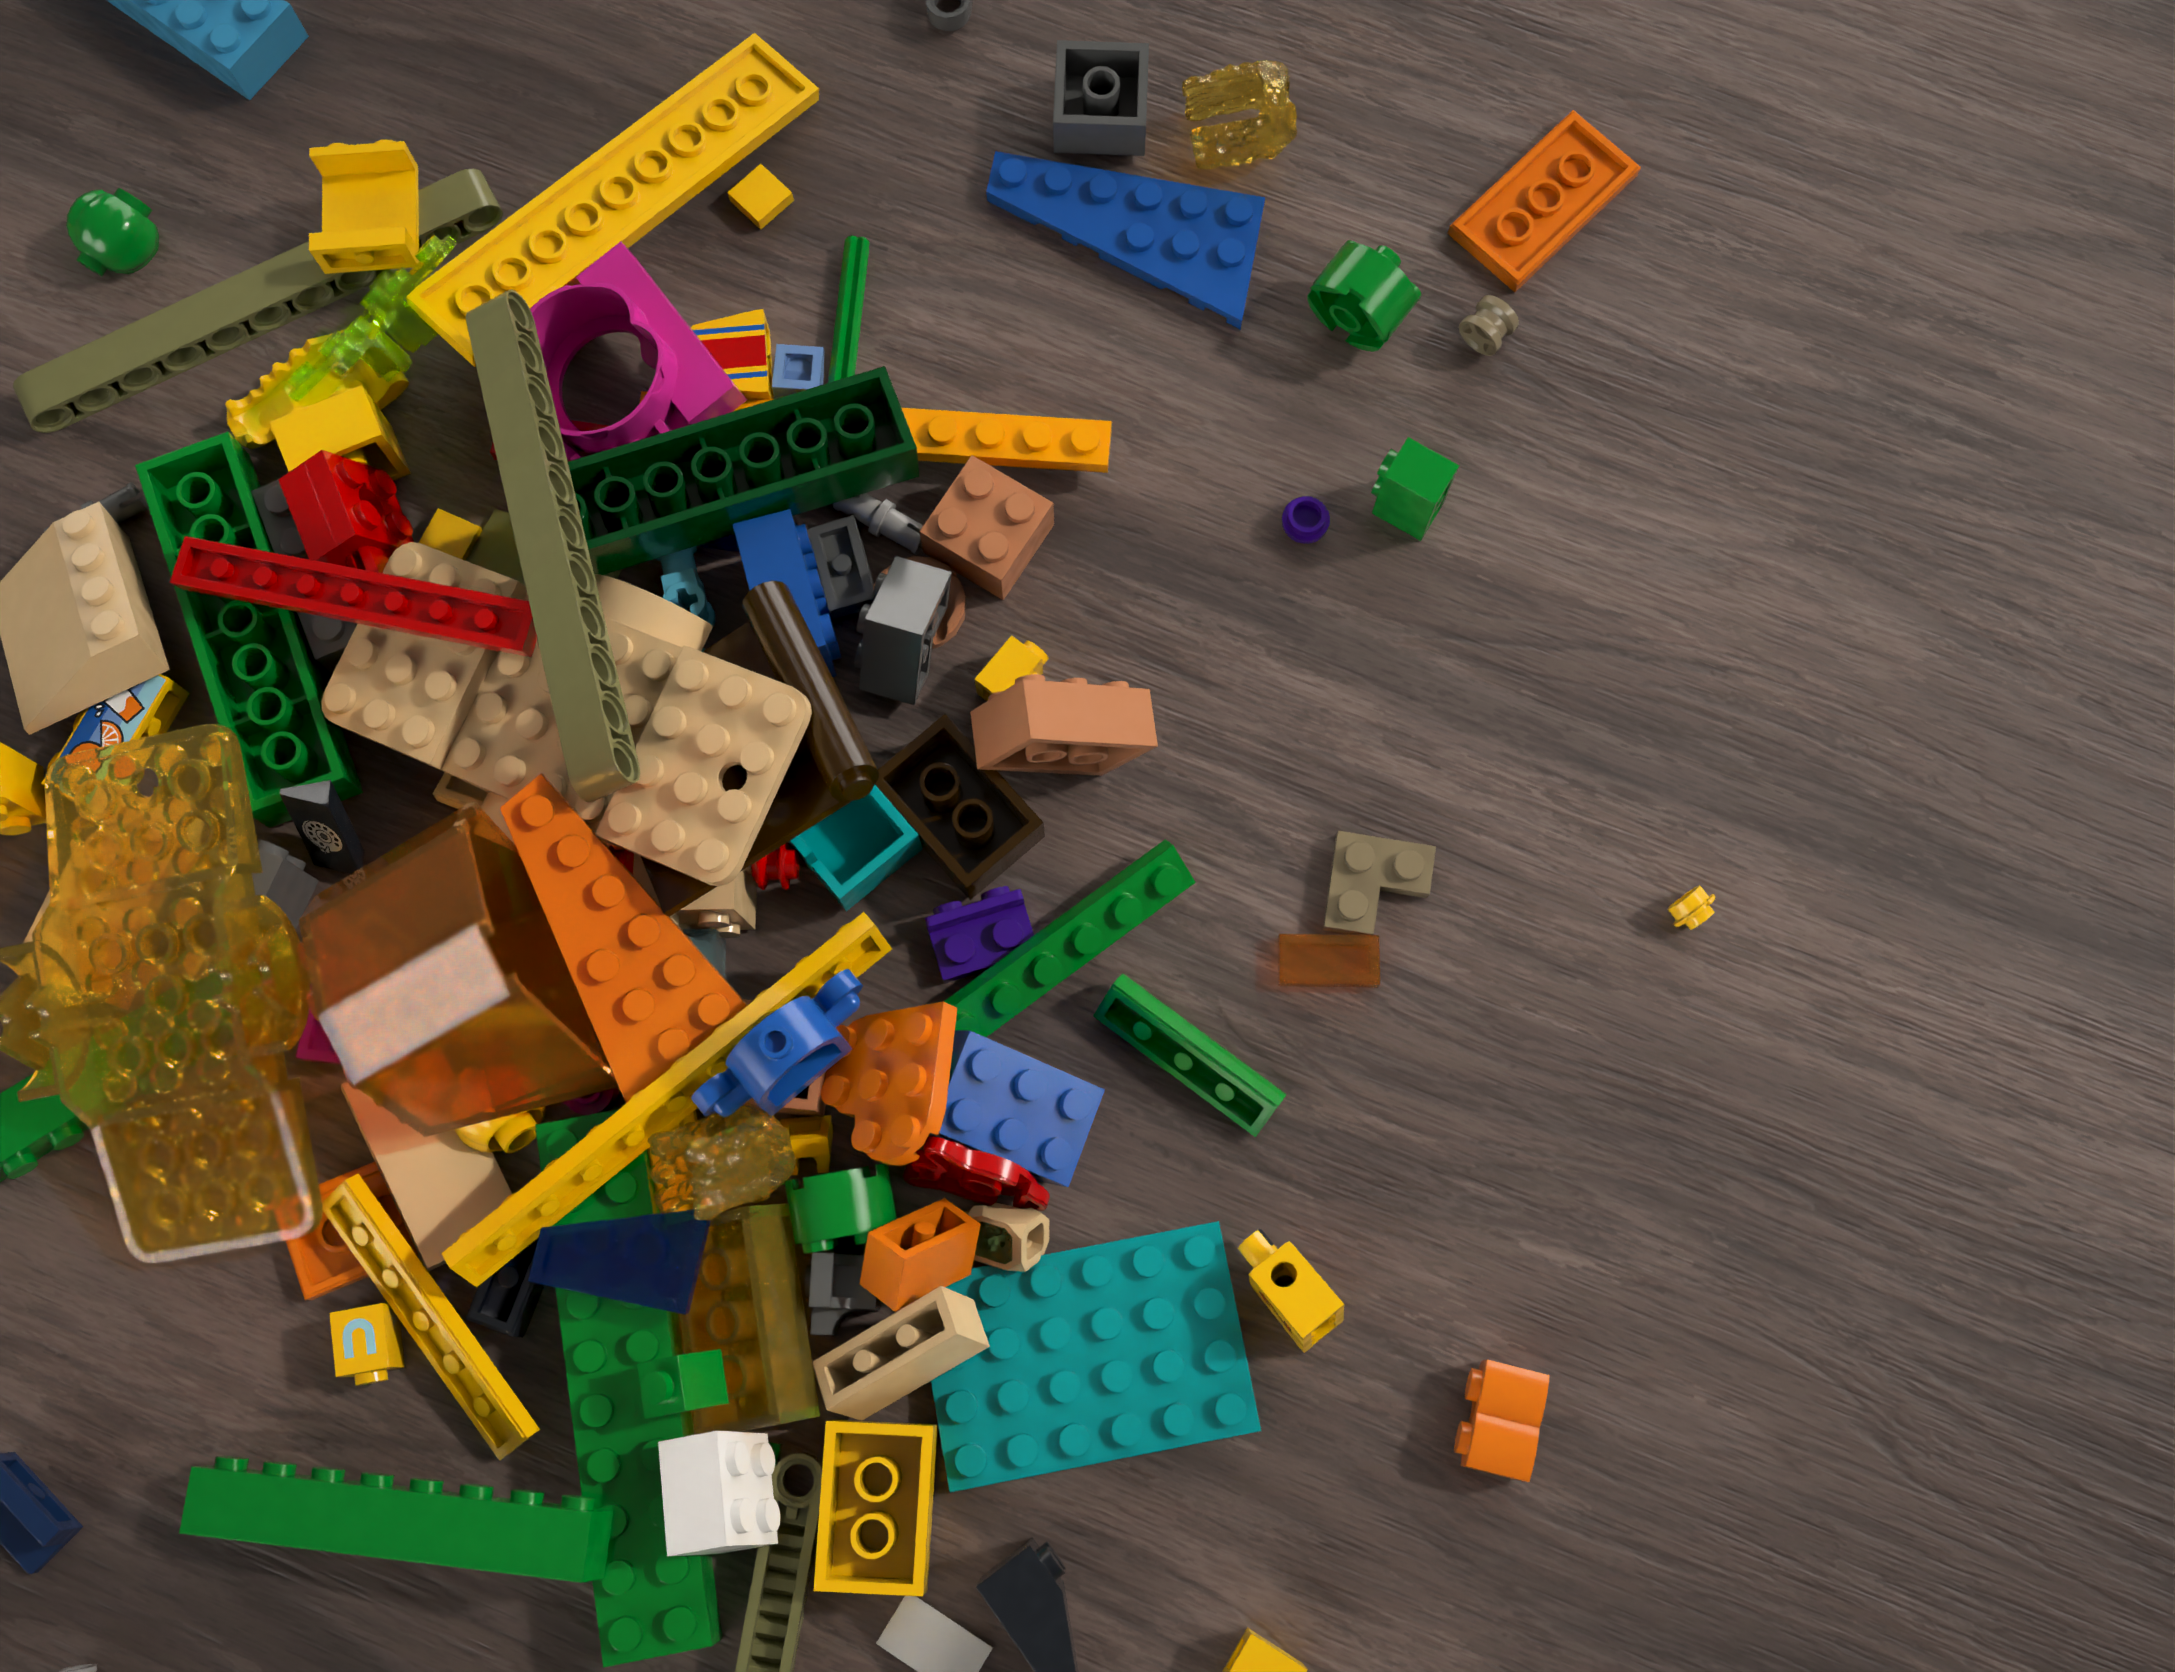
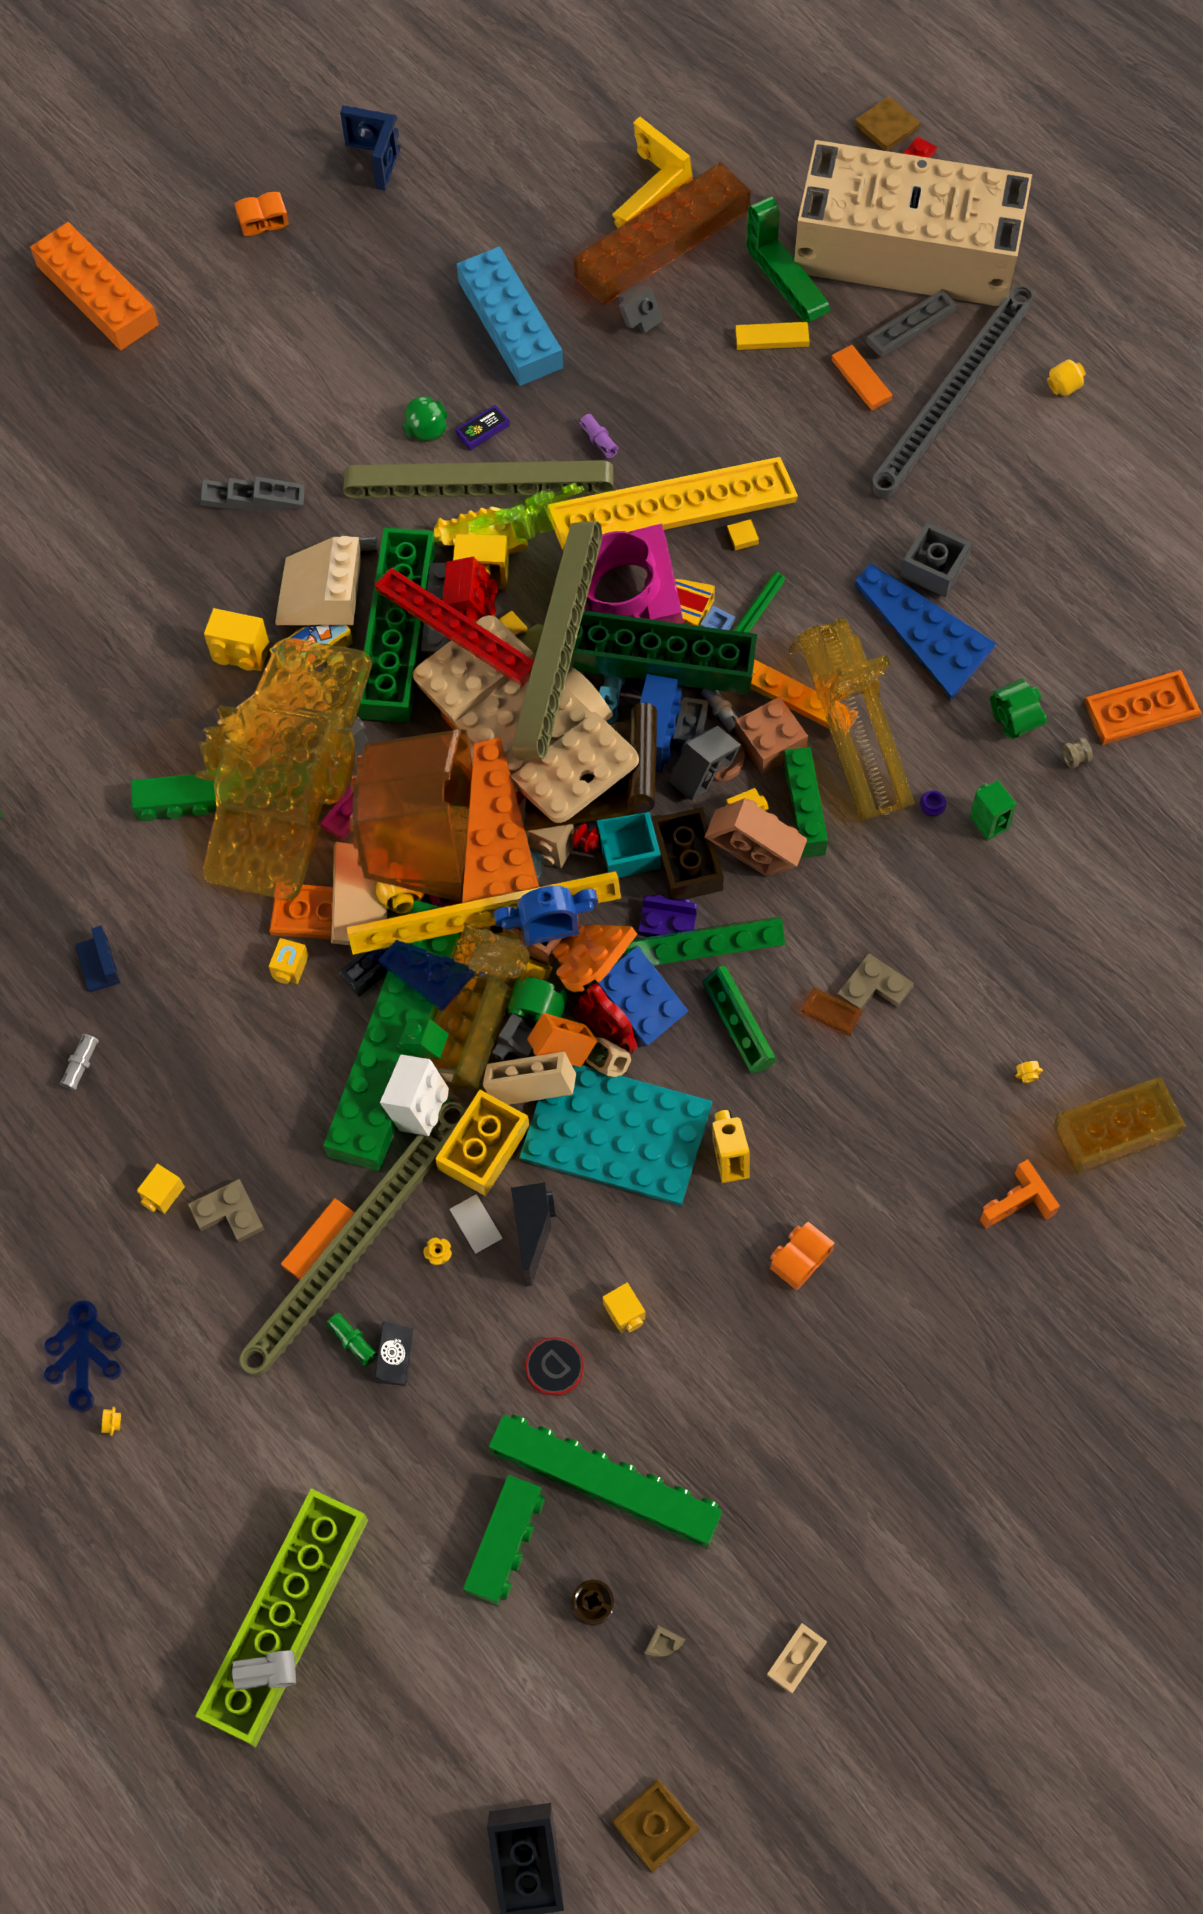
camera: 30 degrees right, 10 degrees down
(222, 202) = (482, 427): none -> tile
(324, 826) = (386, 720): black slope -> none
(366, 207) = (550, 458): yellow panel -> none
(398, 1521) = (266, 1039): green brick -> none
(429, 1317) = (322, 963): yellow tile -> none
(431, 129) = (599, 436): none -> medium lavender pin
(1061, 370) = (842, 672): none -> clear yellow piece
(1101, 613) = (805, 800): none -> green brick
(1238, 88) = (1015, 586): clear yellow piece -> none
(1793, 1132) = (1019, 1197): none -> orange bracket
(1885, 933) = (1118, 1125): none -> clear yellow brick

